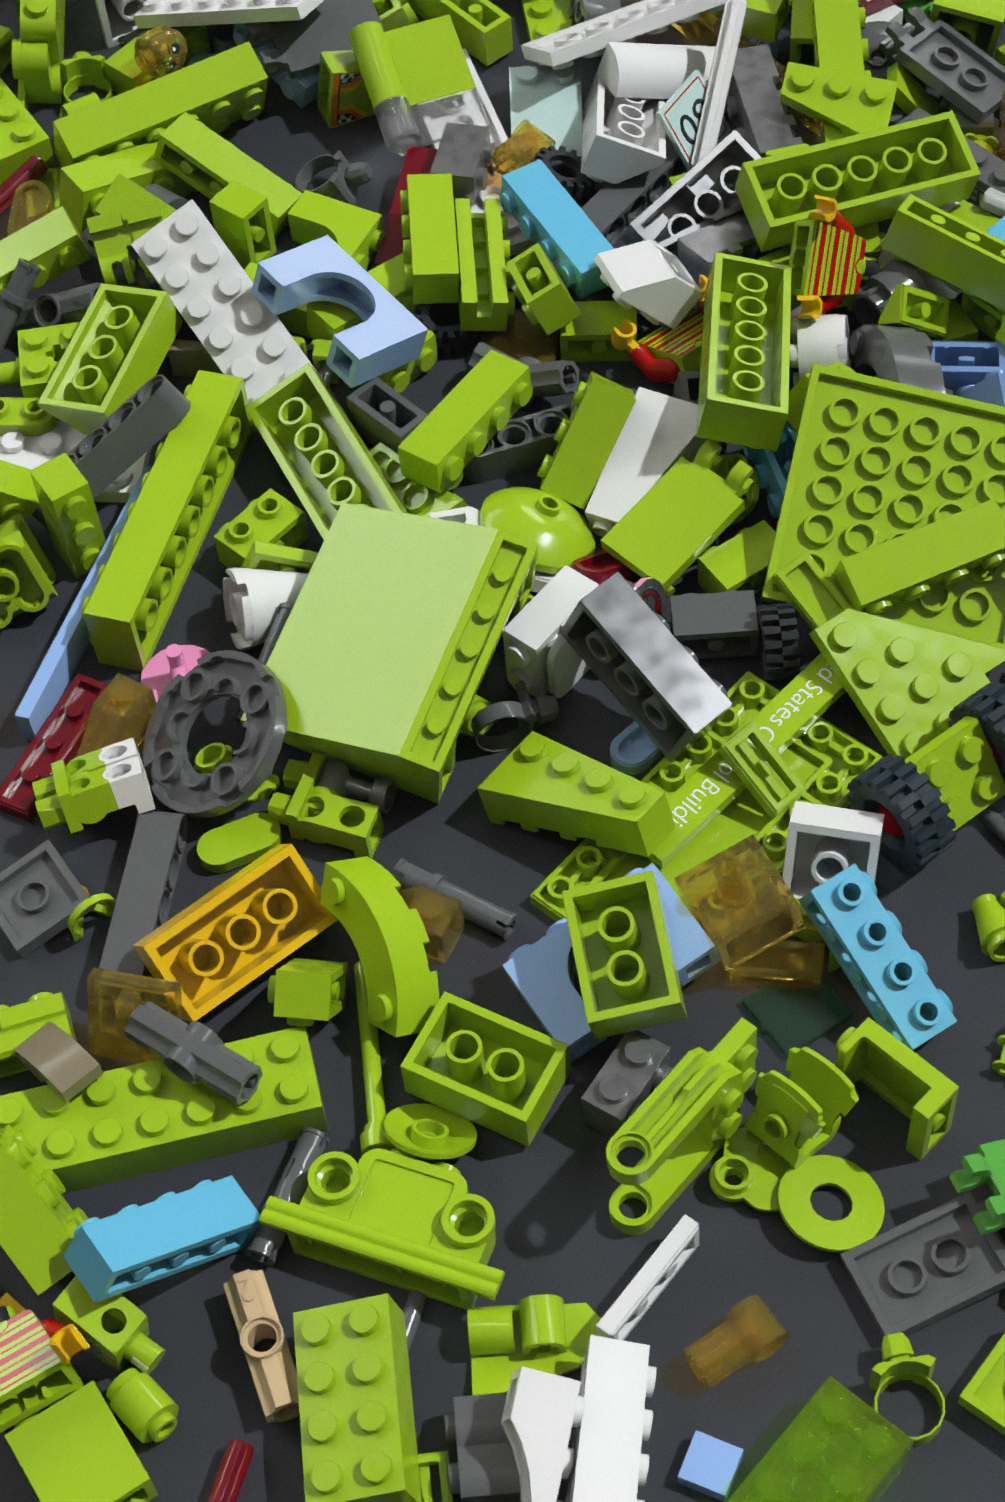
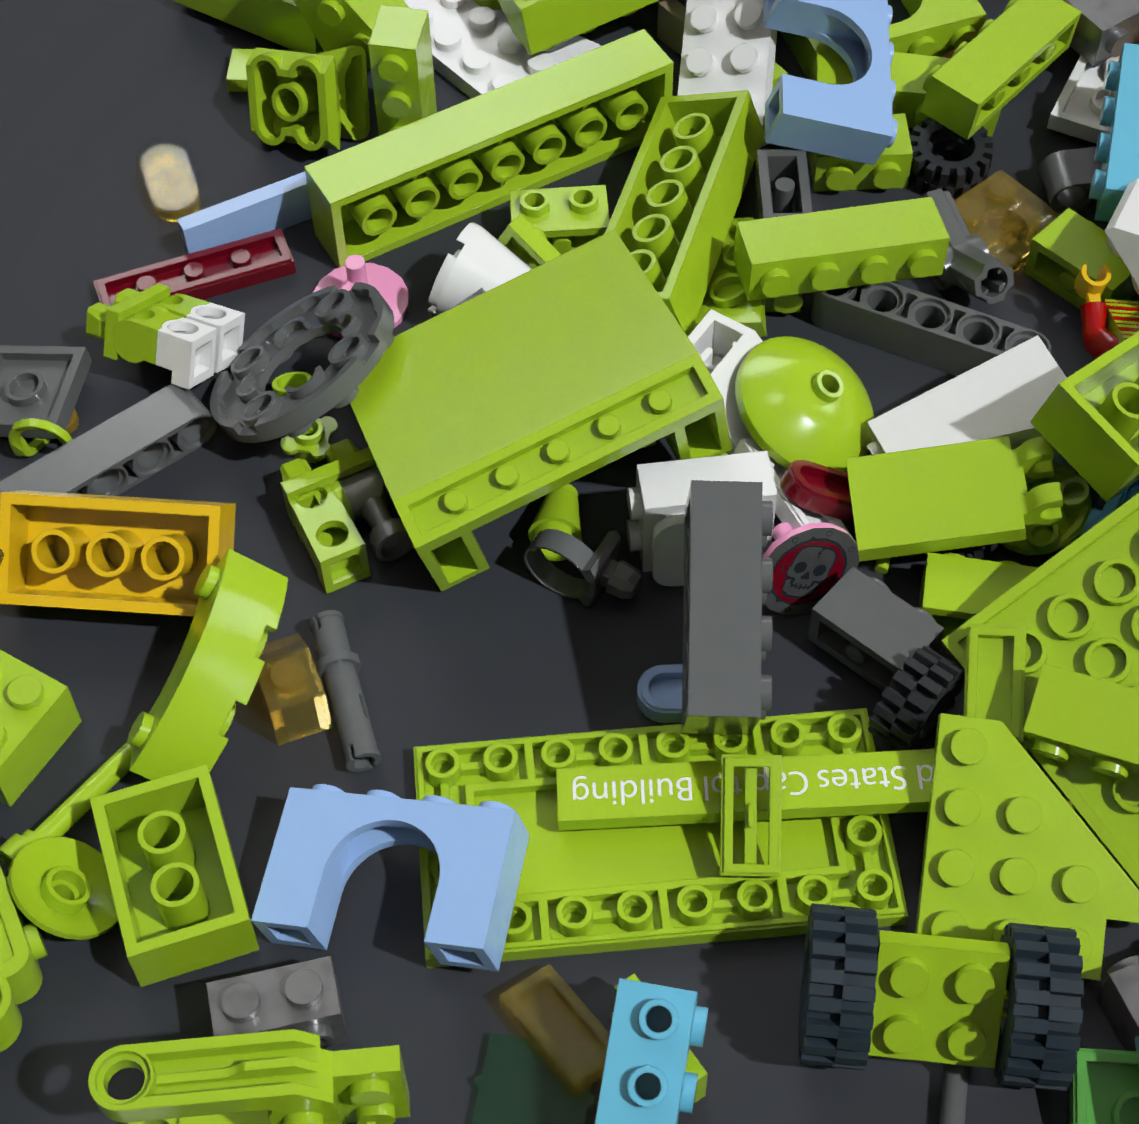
camera: 40 degrees right, 0 degrees up
(118, 714) = (259, 286): clear yellow slope -> none
(127, 434) = (513, 45): dark grey beam -> none
(238, 842) = (237, 479): lime tile -> none
(308, 990) = (109, 659): lime brick -> none
(482, 268) = (1024, 120): lime brick -> none
(541, 290) = (1051, 178): lime brick -> none
(577, 796) = (540, 680): lime wedge -> none
(586, 439) = (939, 346): lime wedge -> none
(624, 955) = (374, 876): lime brick -> none
(740, 902) = (565, 929): clear yellow brick -> none
(826, 842) = (726, 952): white brick -> none

